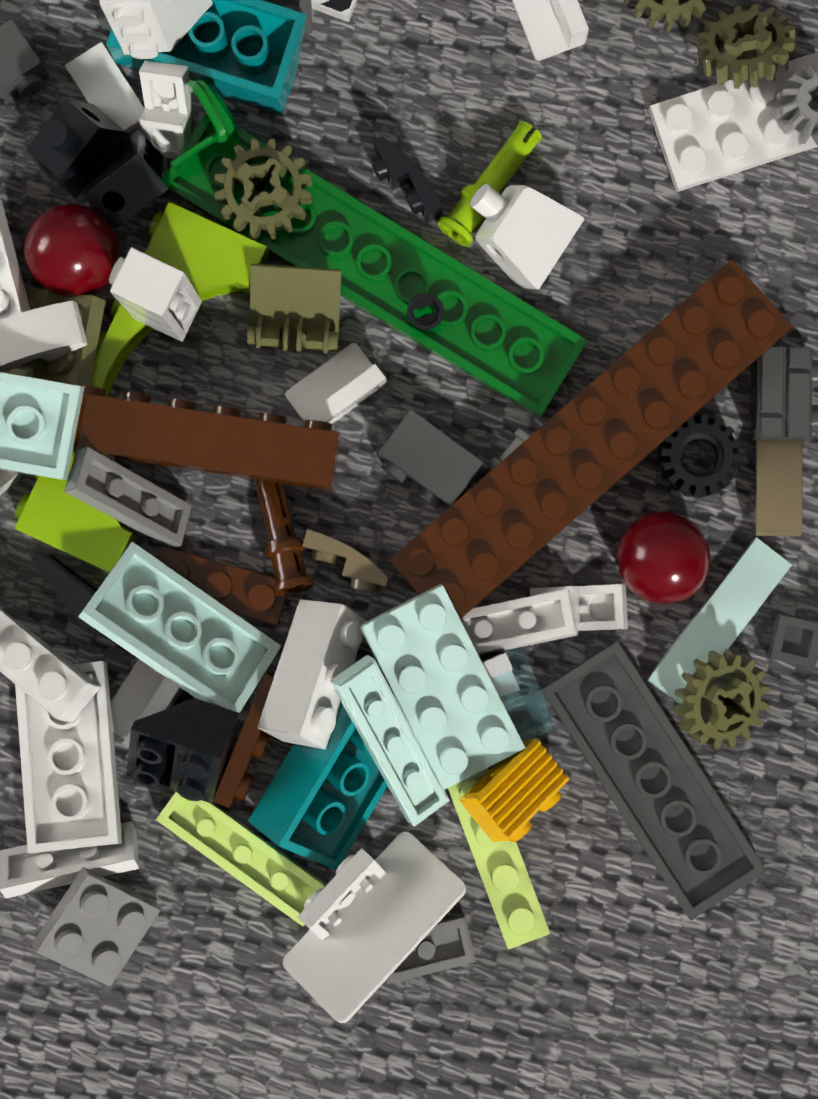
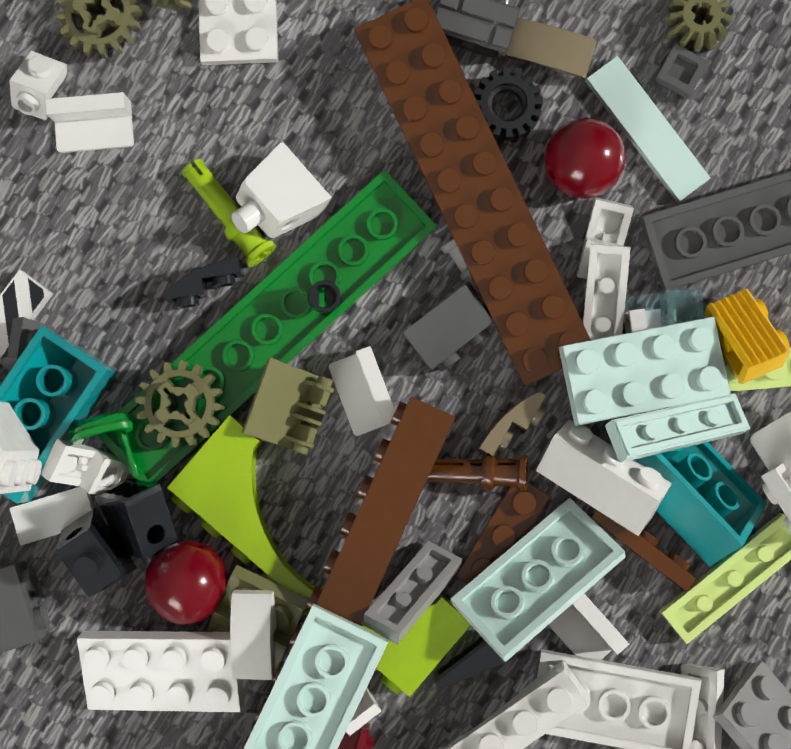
camera: 75 degrees left, 0 degrees up
(155, 293) = (250, 520): white brick -> none
(183, 748) = (639, 603): black slope -> none
(708, 717) = (714, 144): olive gear -> none

